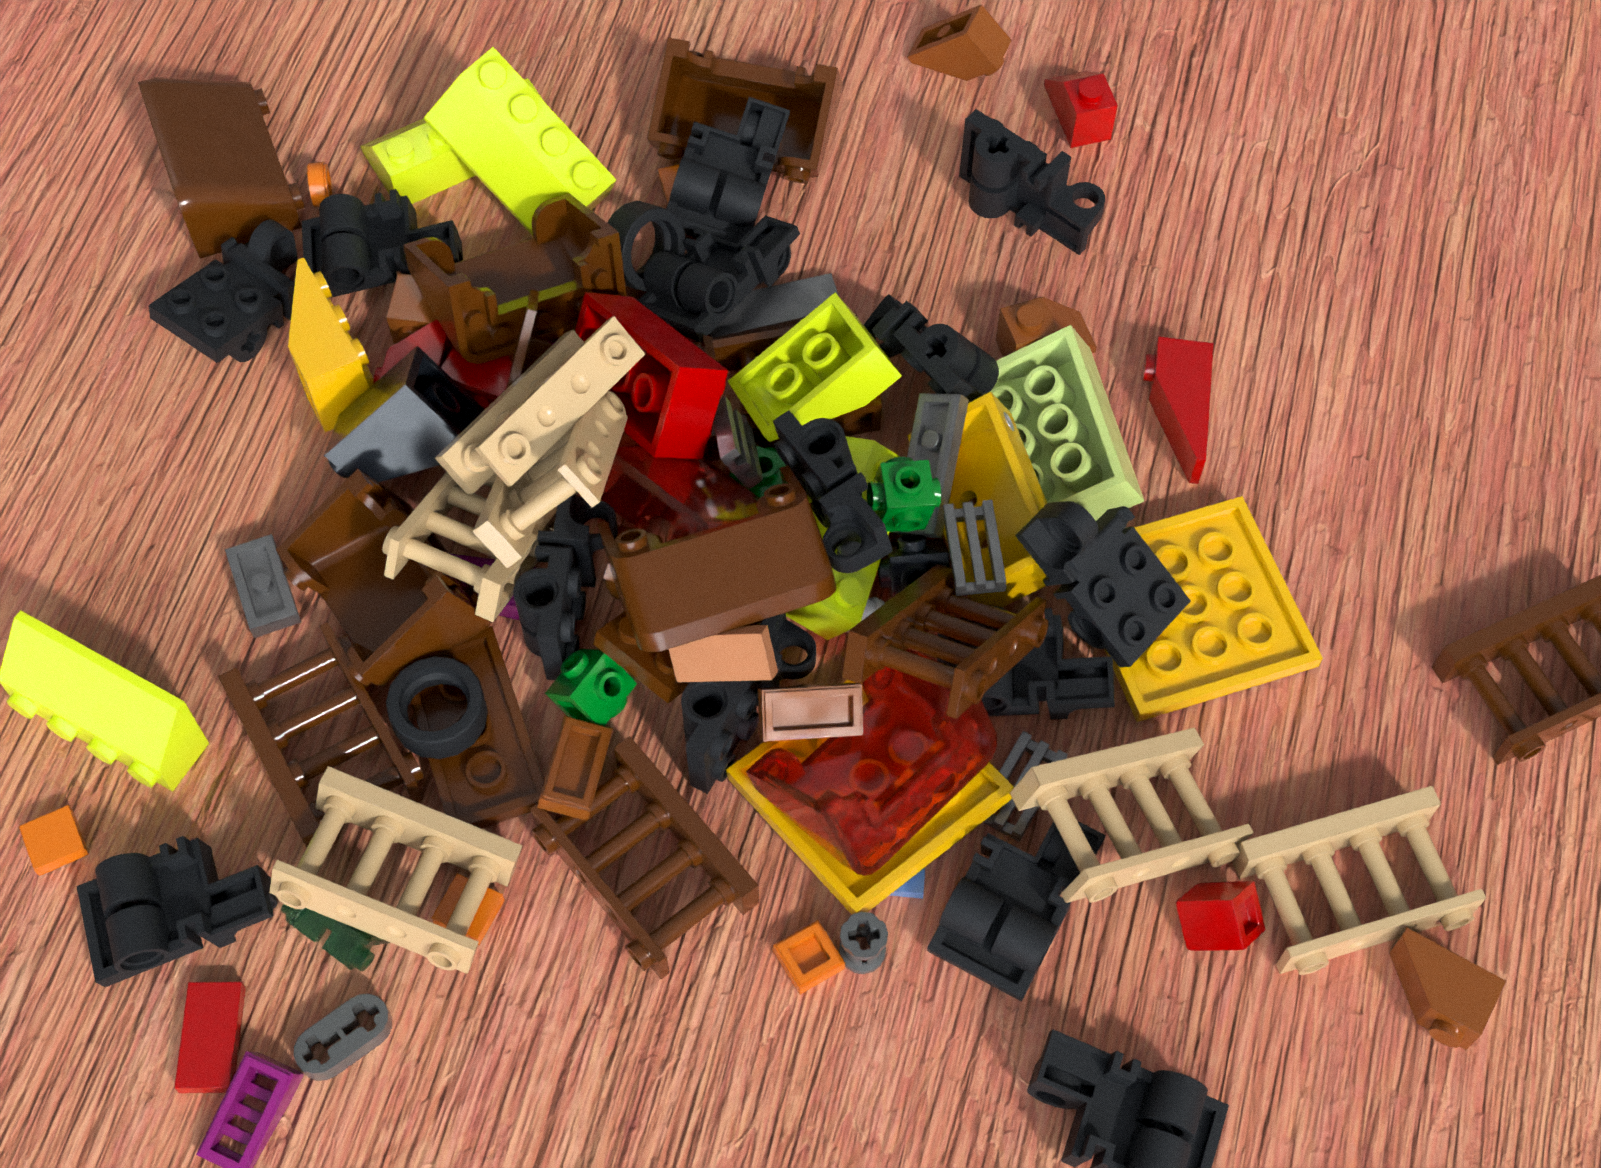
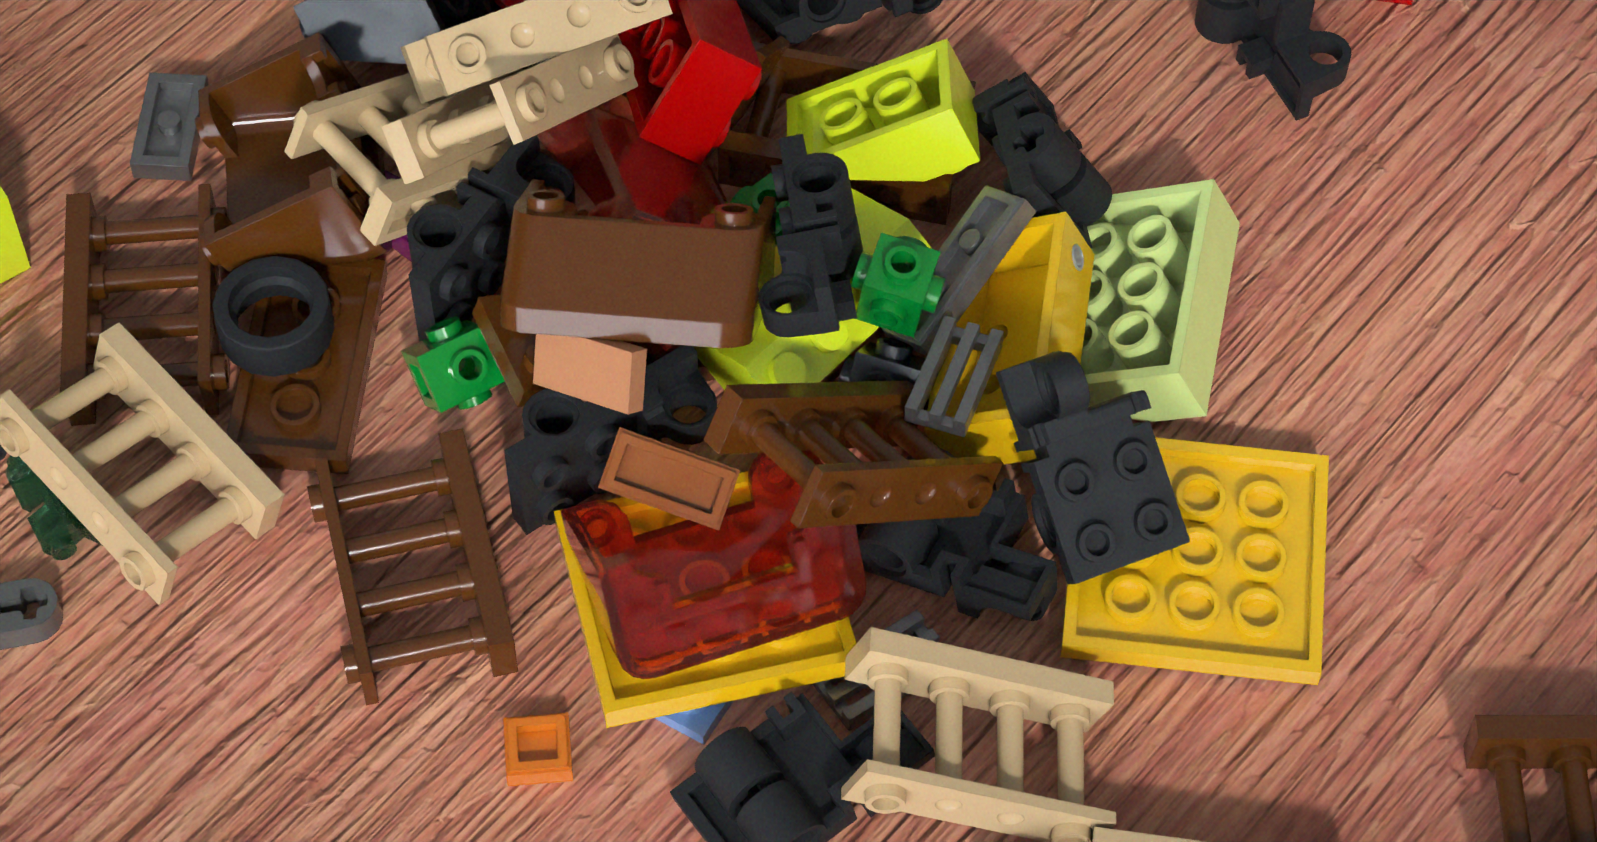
camera: 25 degrees right, 5 degrees down
(484, 916) = (209, 555): orange tile -> none
(575, 768) = (386, 439): dark orange tile -> none
(738, 442) = (751, 170): flat silver tile -> none
(776, 307) = (883, 39): flat silver tile -> none
(876, 935) = (597, 754): dark grey bush -> none
(1035, 319) = (1188, 160): dark orange slope -> none
(1181, 398) = (1326, 310): red slope -> none

